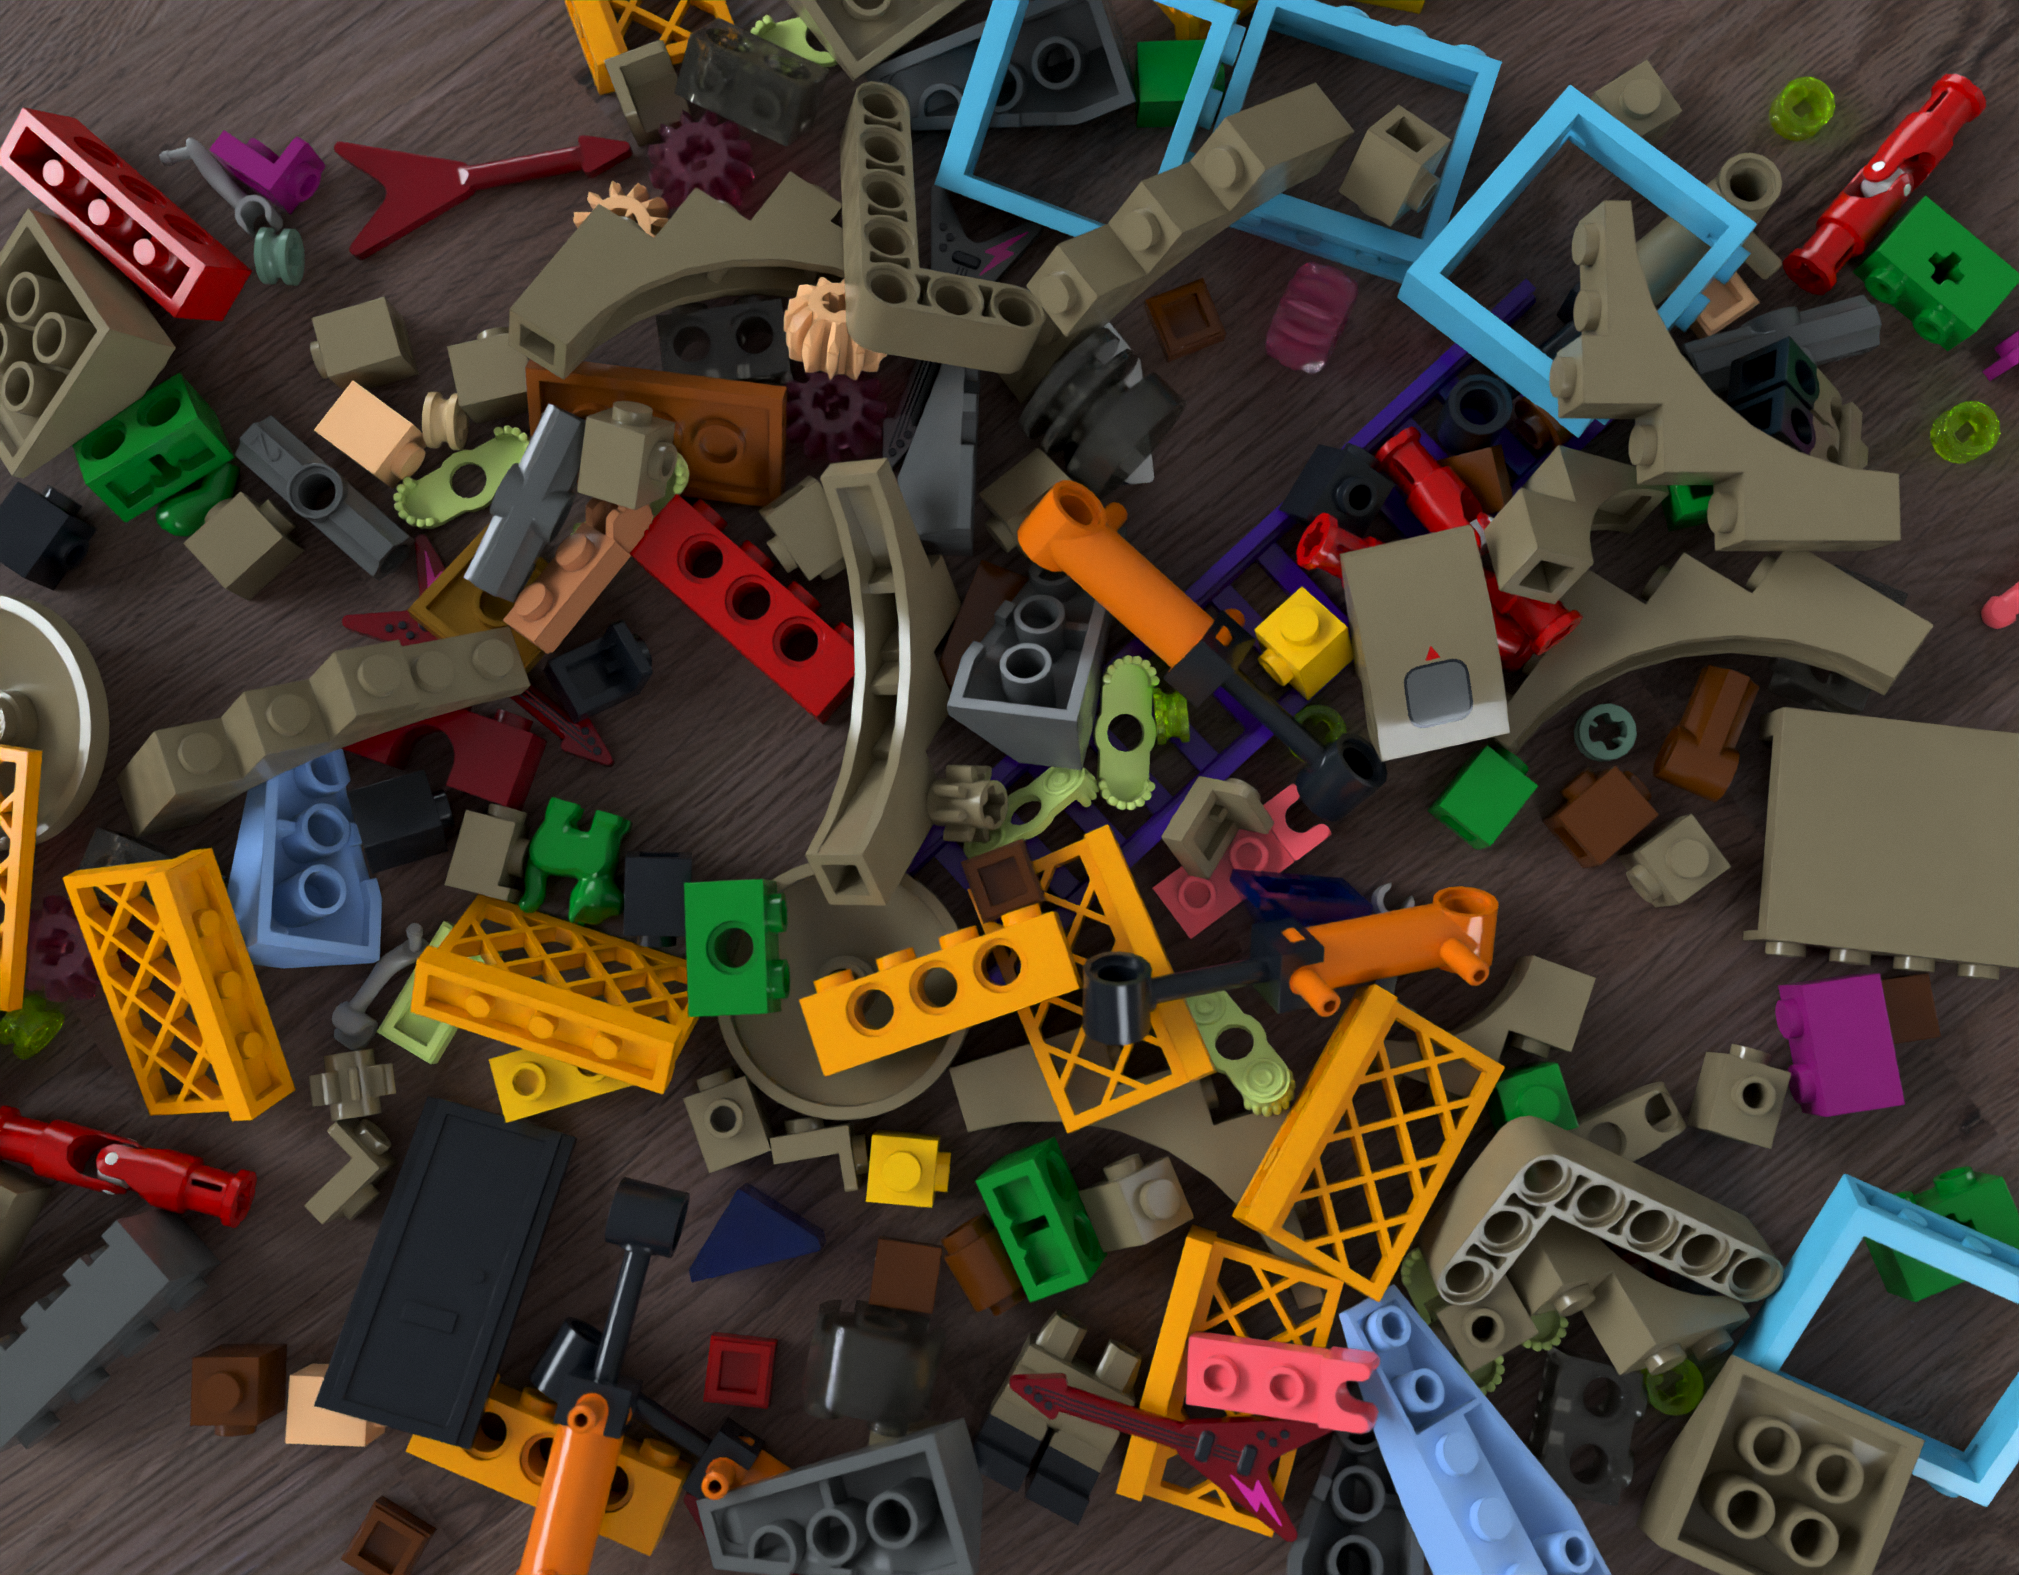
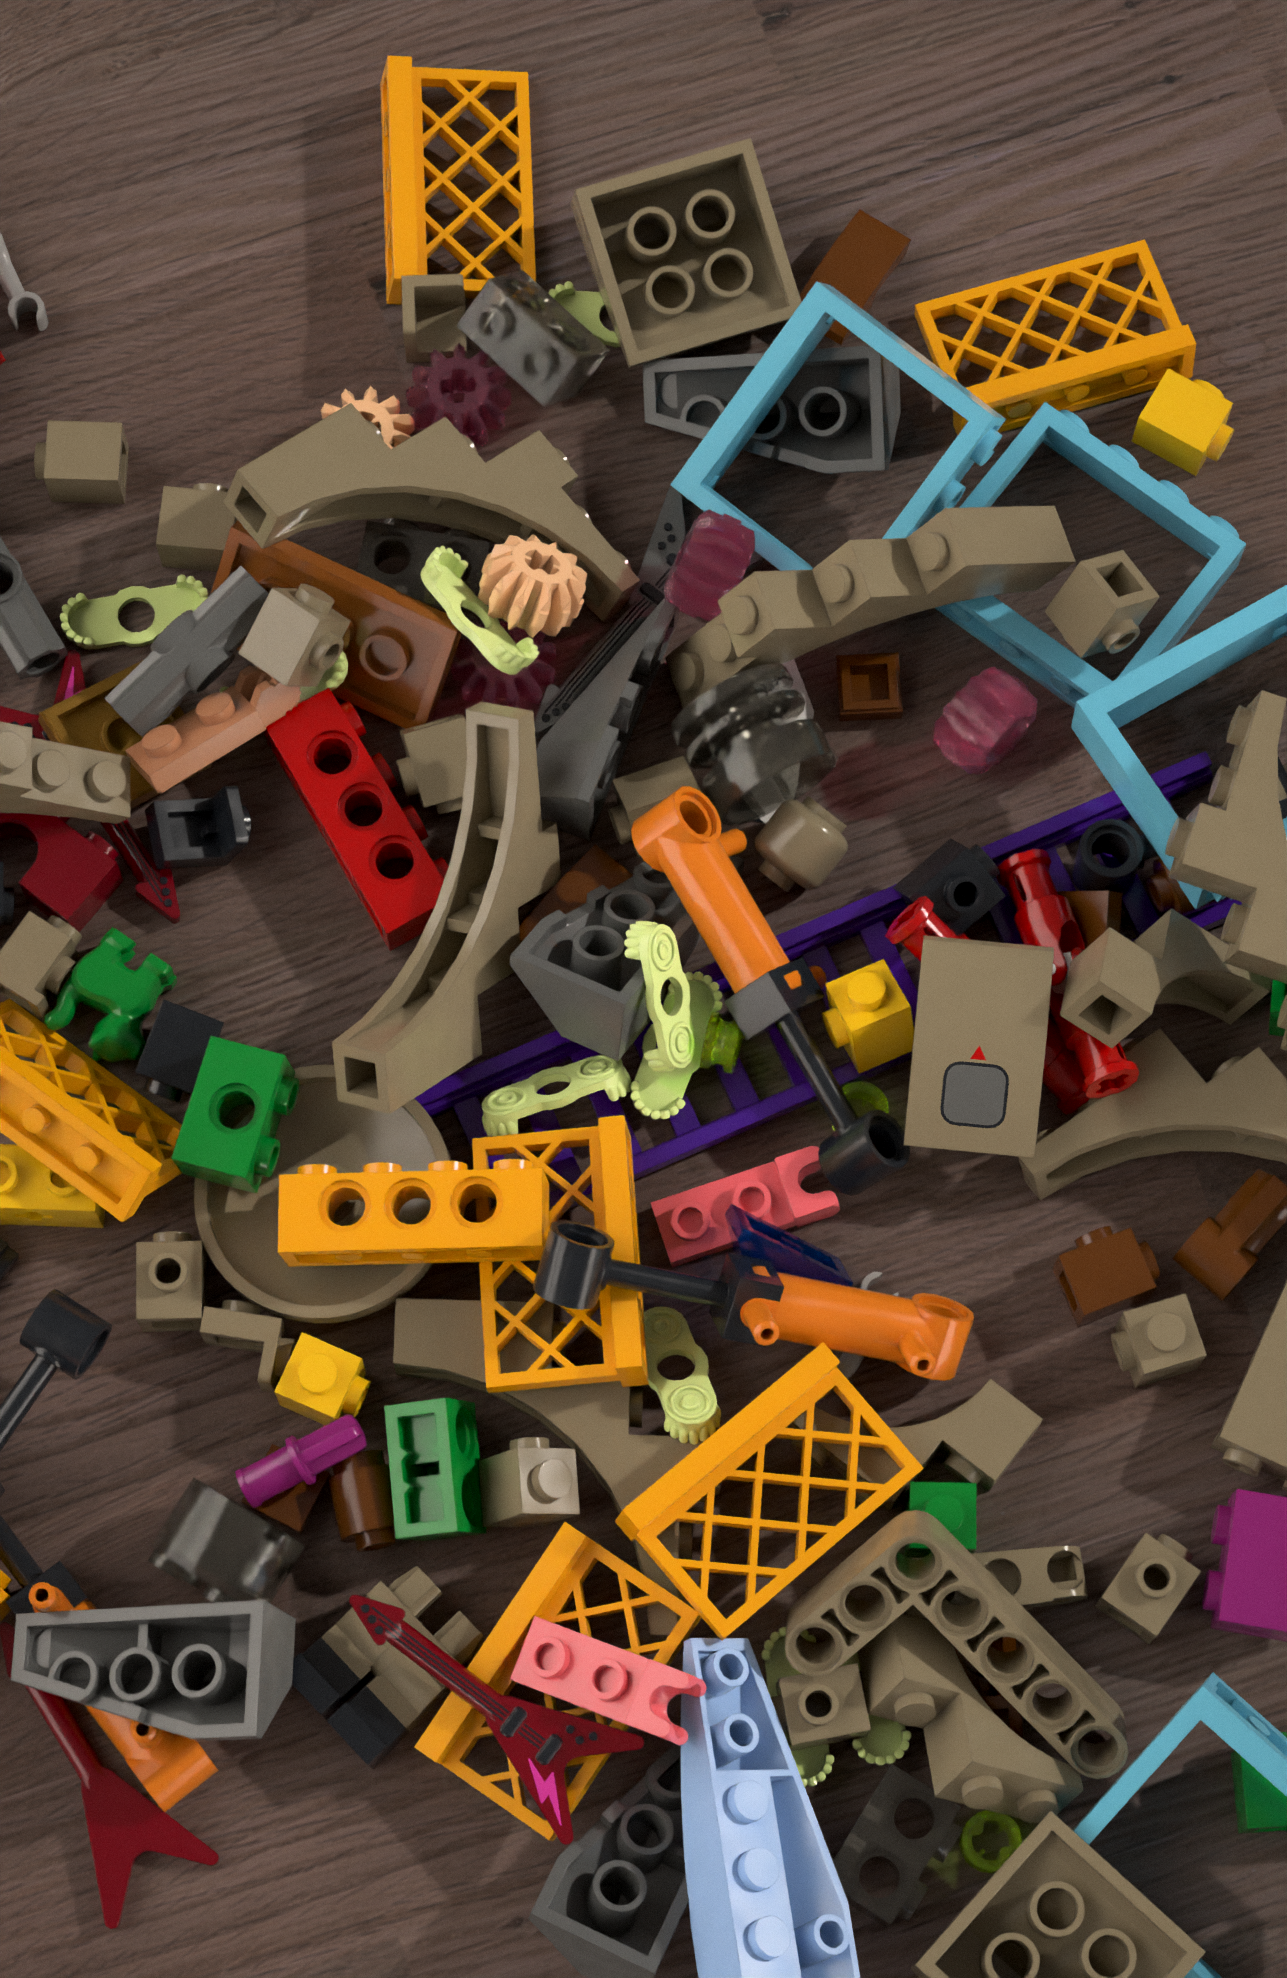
camera: 15 degrees right, 10 degrees down
(278, 179) = (51, 278): magenta bracket -> none
(279, 256) = (35, 355): sand green bush -> none
(373, 435) = (64, 546): light nougat brick -> none
(428, 186) = (195, 336): dark red piece -> none
(444, 421) = (134, 554): tan bush -> none
(740, 1370) = (96, 1526): red tile -> none
(751, 353) = (443, 580): none -> yellowish green piece
(753, 1234) = (153, 1398): clear blue slope -> none
(887, 296) = (589, 574): dark tan beam -> none
(912, 1254) = (301, 1459): none -> magenta axle
(967, 803) = (500, 1057): dark tan gear -> none
(1003, 241) = (709, 564): none -> clear pink gear
(1003, 880) = (508, 1133): reddish brown tile -> none
(1086, 654) = (661, 961): none -> yellowish green piece
(1163, 78) = (918, 453): green brick -> none
(1176, 495) = (800, 844): none -> dark tan head
(1210, 820) = (725, 1153): dark tan bracket -> none
(1484, 796) = (998, 1220): green brick -> none
(1611, 714) = (1155, 1191): sand green bush -> none

